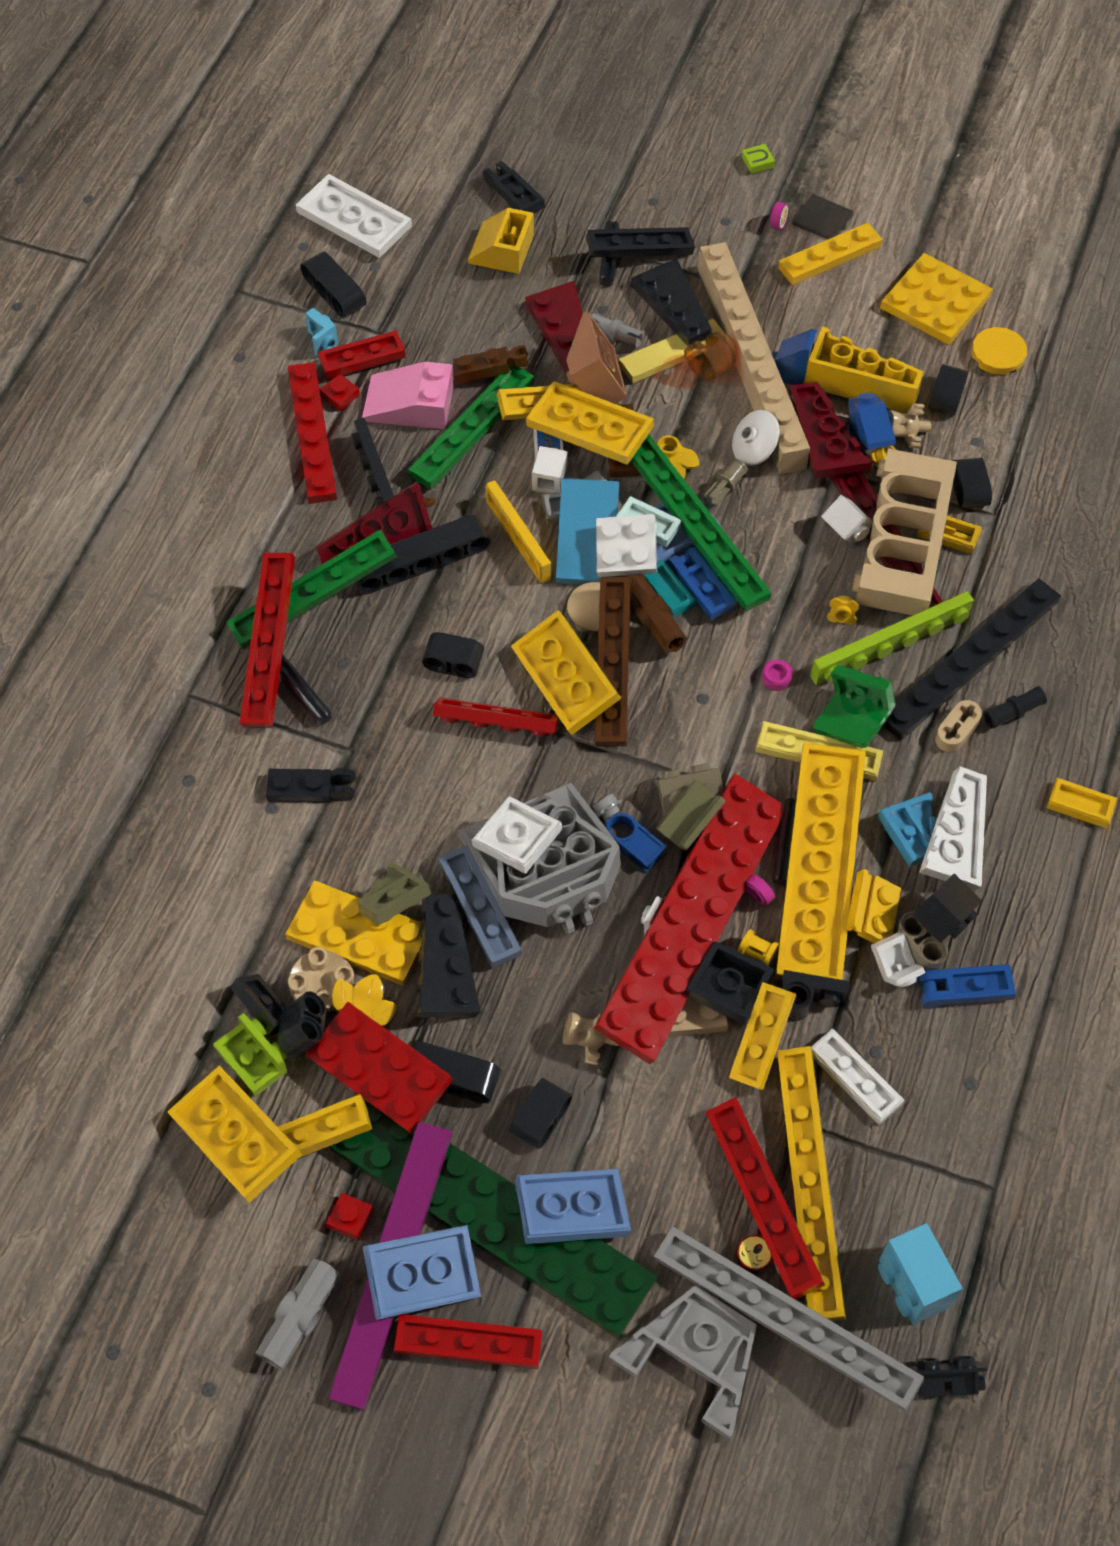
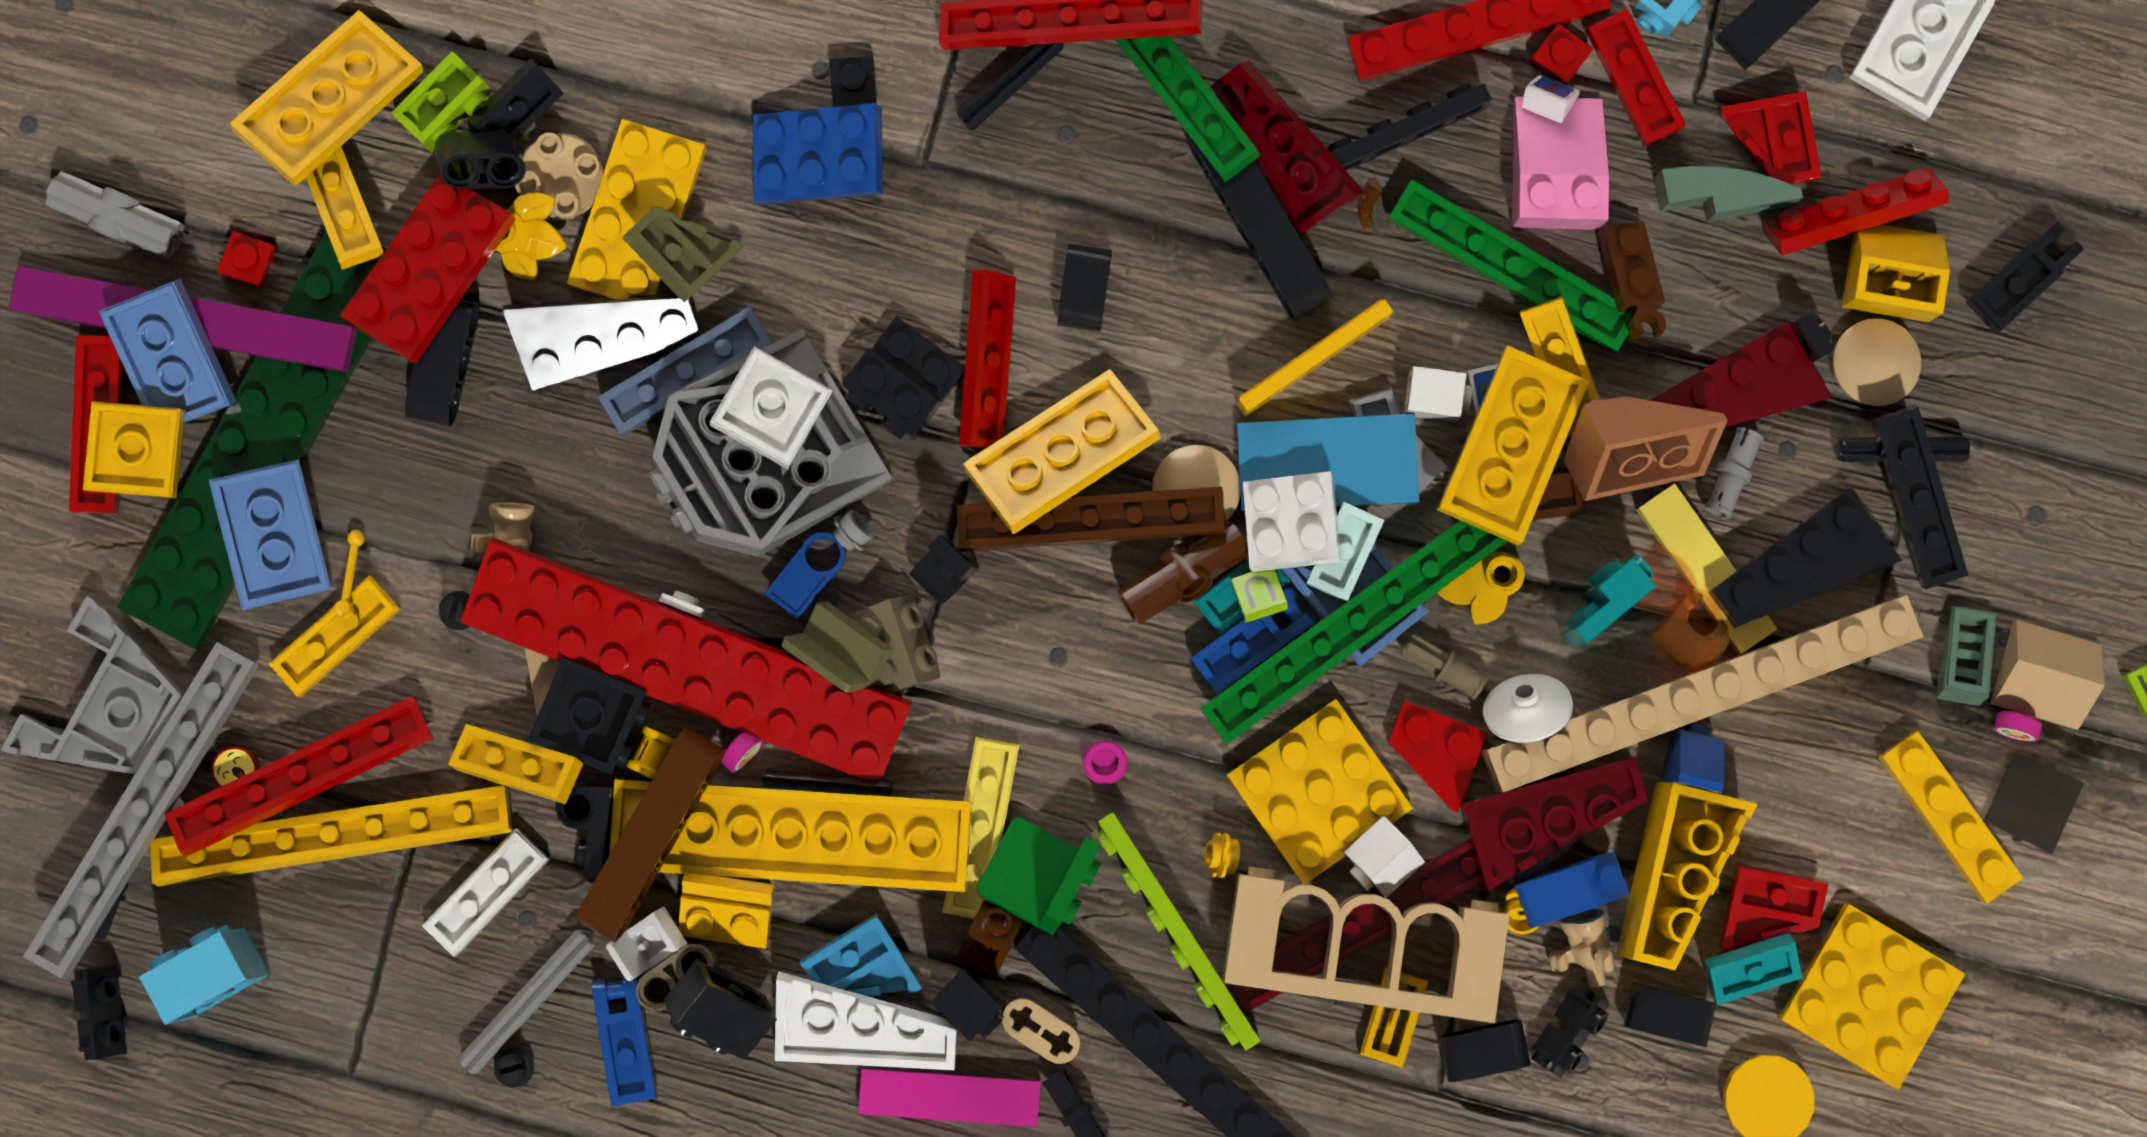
camera: 85 degrees right, 25 degrees up
(334, 804) = (817, 154): none -> blue plate
(368, 395) = (1549, 98): none -> white slope
(411, 290) = (1777, 136): none -> red wing
(440, 319) = (1722, 191): none -> sand green slope
(462, 258) = (1855, 211): none -> red plate
(494, 1304) = (134, 449): none -> yellow plate
(502, 769) = (902, 379): none -> black plate
(537, 282) = (1813, 336): none -> black plate
(540, 1113) = (395, 483): black beam -> none
(555, 260) = (1876, 362): none -> tan dish
(634, 1155) = (343, 608): none -> yellow hinge
(637, 747) = (943, 570): none -> black plate
(641, 1079) = (452, 609): none -> black piece
(654, 1172) = (333, 638): none -> yellow tile
(672, 570) = (1259, 594): none -> lime tile
(692, 388) = (1613, 592): none -> teal plate
(749, 200) = (2049, 675): none -> tan slope
(749, 243) = (1960, 692): none -> sand green slope
(778, 493) = (1437, 750): none -> red wing
(802, 558) = (1318, 790): none -> yellow plate
(820, 943) = (650, 834): none -> reddish brown beam
(882, 334) = (1769, 905): none -> red wing
(899, 745) = (989, 939): none -> reddish brown bracket
(920, 347) = (1753, 968): none -> teal plate
(938, 1053) = (526, 1001): none -> light grey axle
(942, 754) = (970, 1005): none -> black brick
(950, 431) = (1583, 1019): none -> black hinge
(987, 1066) = (514, 1067): none -> black piece
(1004, 785) = (949, 1097): none -> dark pink tile

